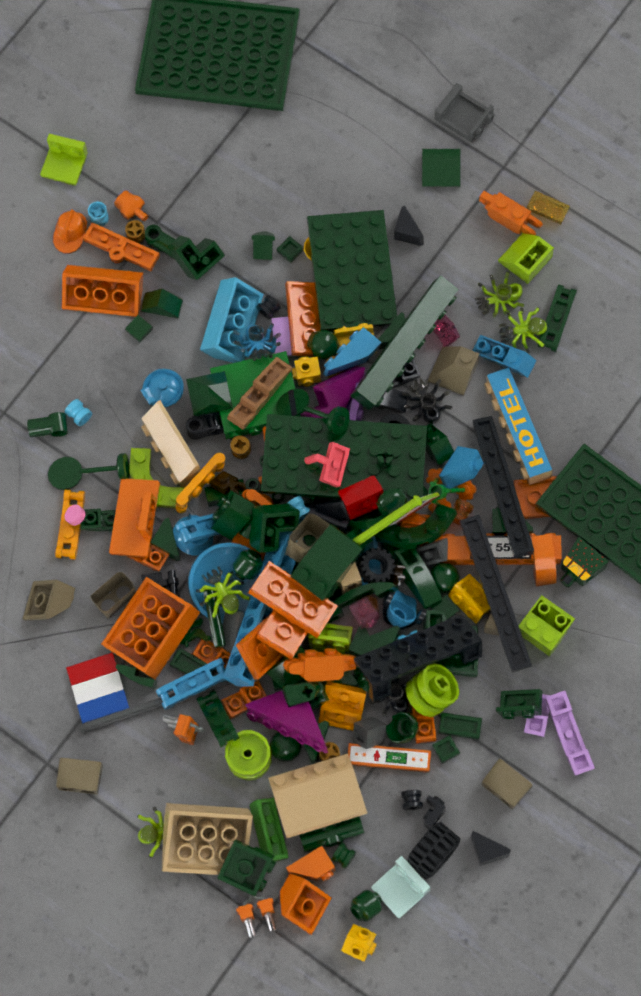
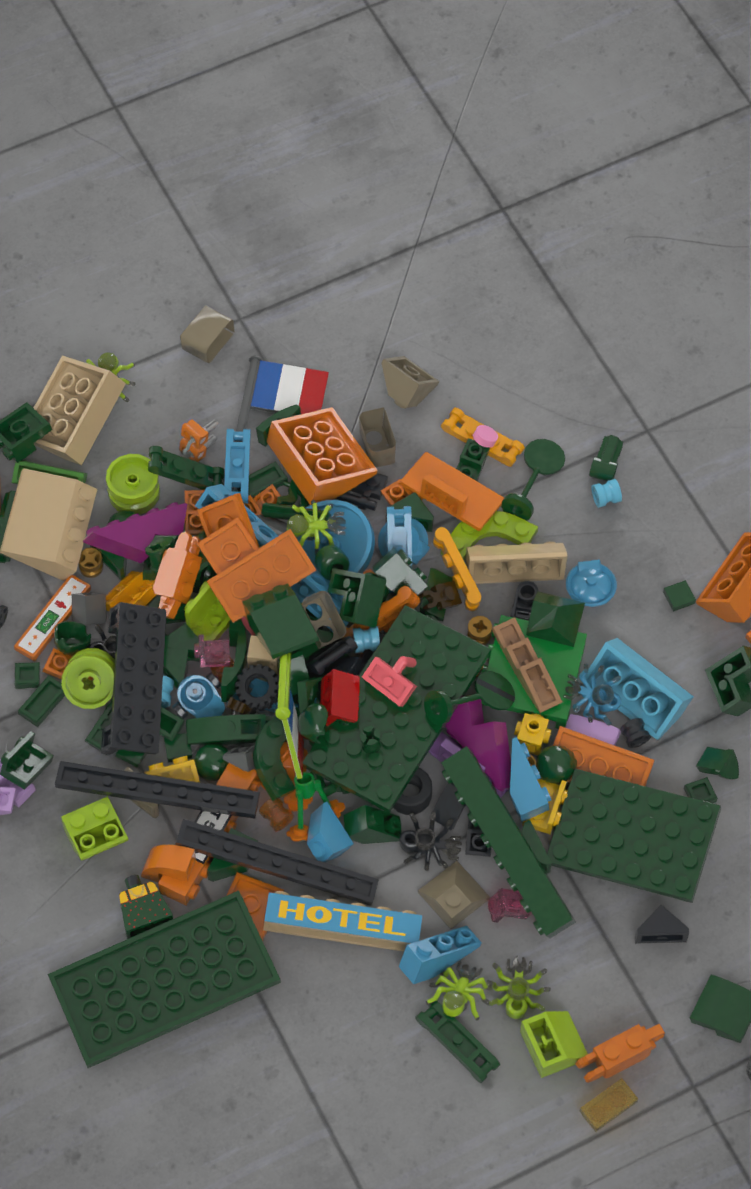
camera: 110 degrees right, 10 degrees down
(162, 303) = (696, 630): dark green slope -> none

